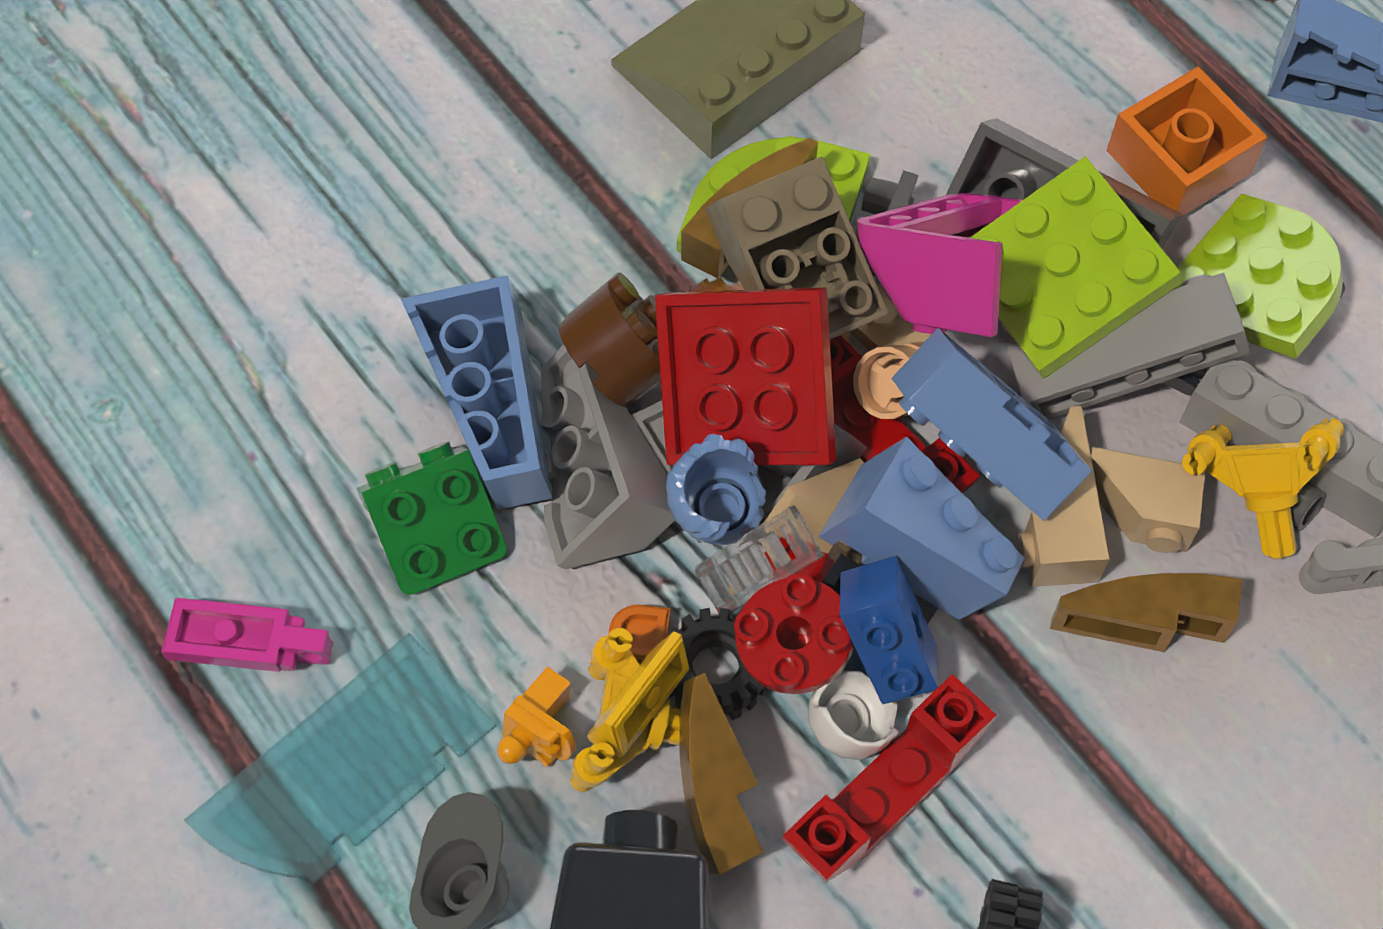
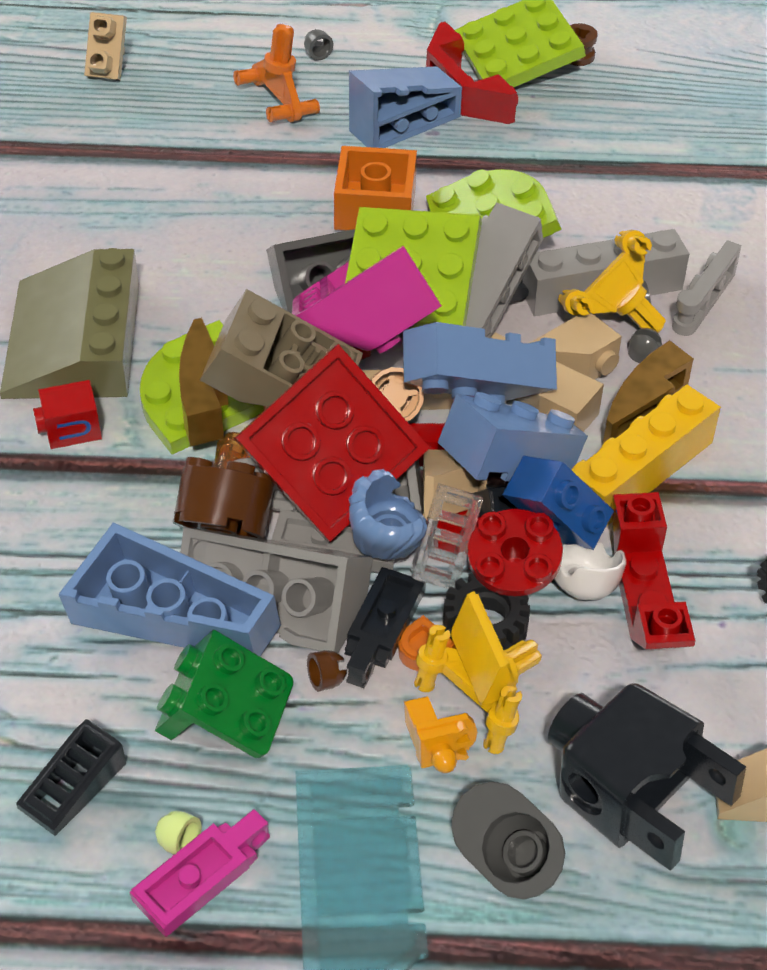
camera: 50 degrees left, 15 degrees down
(266, 588) = (177, 830): none -> yellowish green hinge
(273, 481) = (74, 751): none -> black slope
(531, 572) = (324, 670): none -> reddish brown hinge
(626, 579) = (381, 623): none -> black hinge
(629, 133) = (68, 414): none -> red brick
(712, 778) = (565, 651): pearl gold slope -> none
(1062, 665) = (652, 446): none -> yellow brick
(1228, 561) = (643, 343): none -> dark grey hinge

